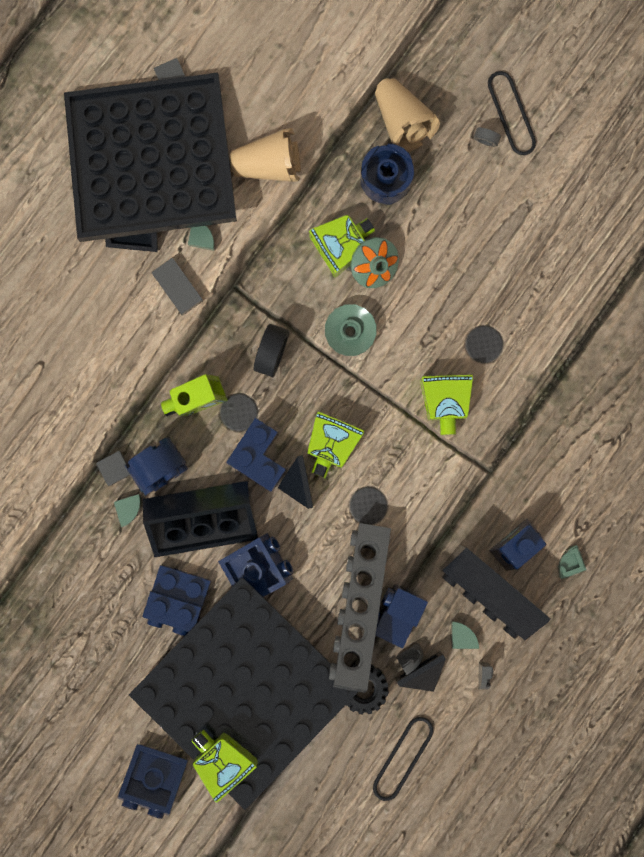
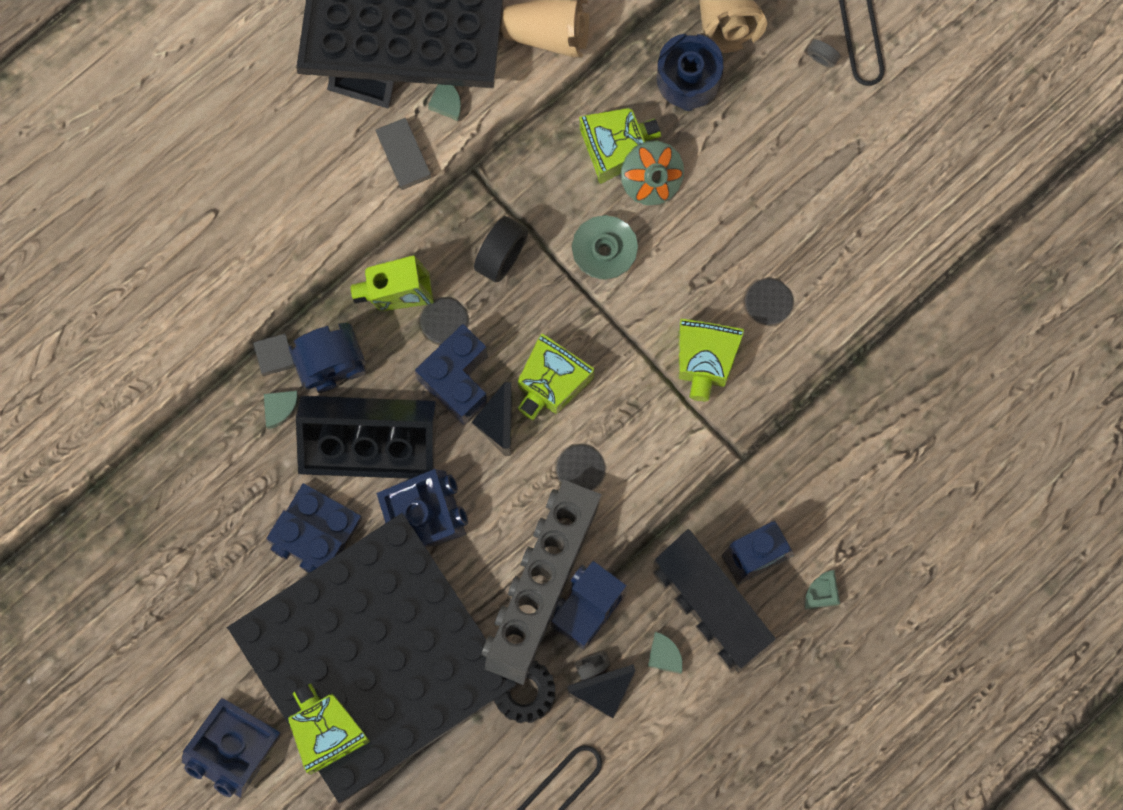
camera: 15 degrees right, 10 degrees down
(485, 675) = (682, 709): dark grey tile -> none

